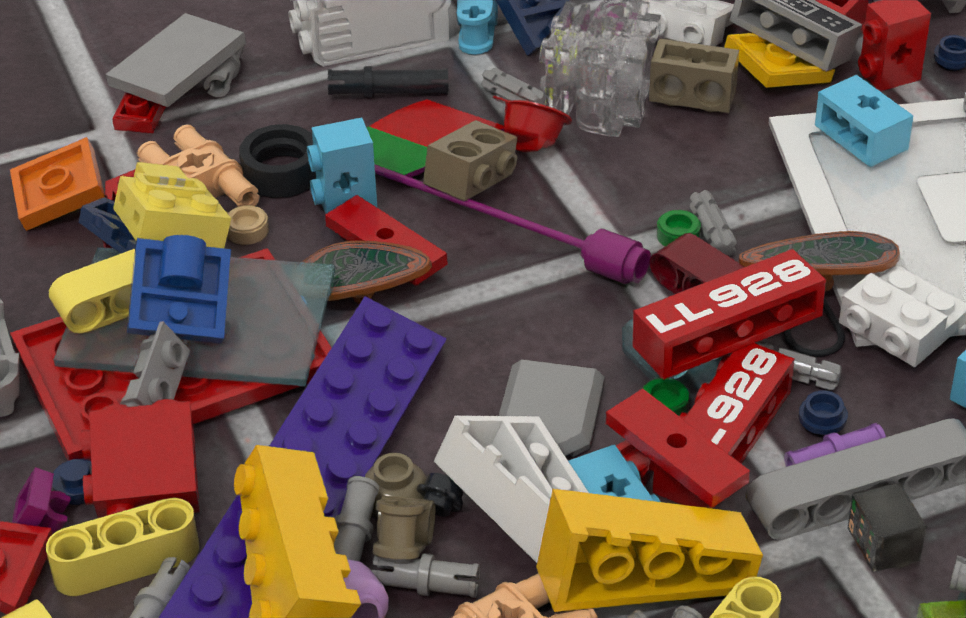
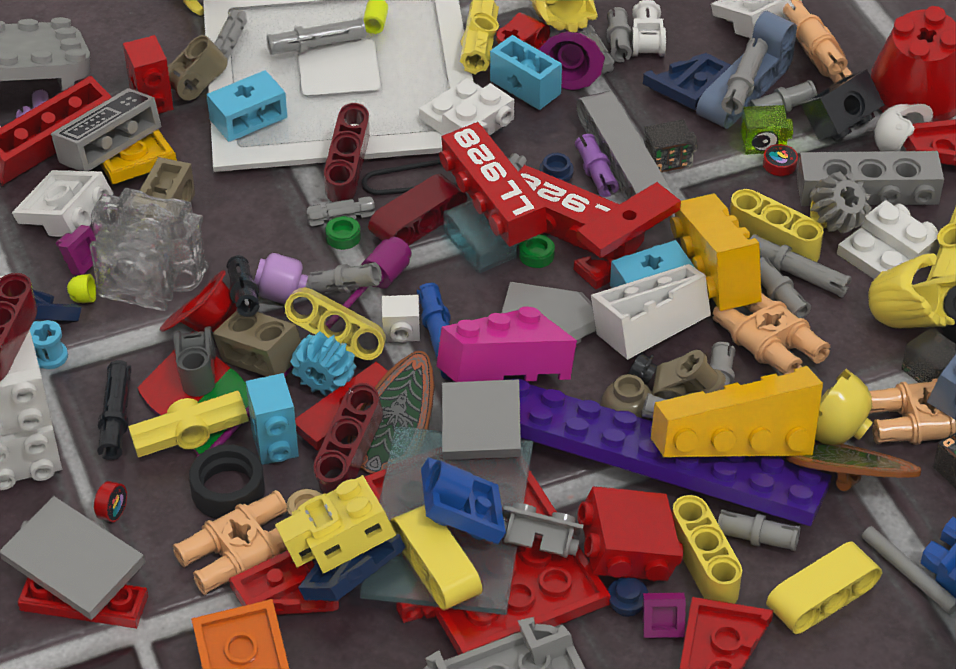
camera: 90 degrees left, 5 degrees up
(260, 87) = (110, 501): none -> tile
(315, 228) = (346, 423): none -> dark red beam
(321, 317) = (481, 419): none -> light grey piece
(344, 103) = (188, 423): none -> light yellow piece
(434, 205) = (323, 363): none -> medium azure gear
(441, 113) = (195, 361): none -> dark grey piece
(449, 343) = (506, 345): none -> dark pink wedge
(489, 206) = (325, 307): none -> light yellow beam
(511, 87) = (145, 322): light grey axle -> none
(519, 273) = (401, 318): none -> white plate
(526, 306) = (434, 315): none -> blue pin
(539, 134) = (238, 294): none -> black pin
(578, 219) = (345, 278): none -> light grey pin
(581, 173) = (279, 277): none -> lavender head
(796, 206) = (346, 139): none -> dark red beam
(833, 253) = (405, 142): shield -> none
(927, 81) = (197, 67): none -> dark tan piece

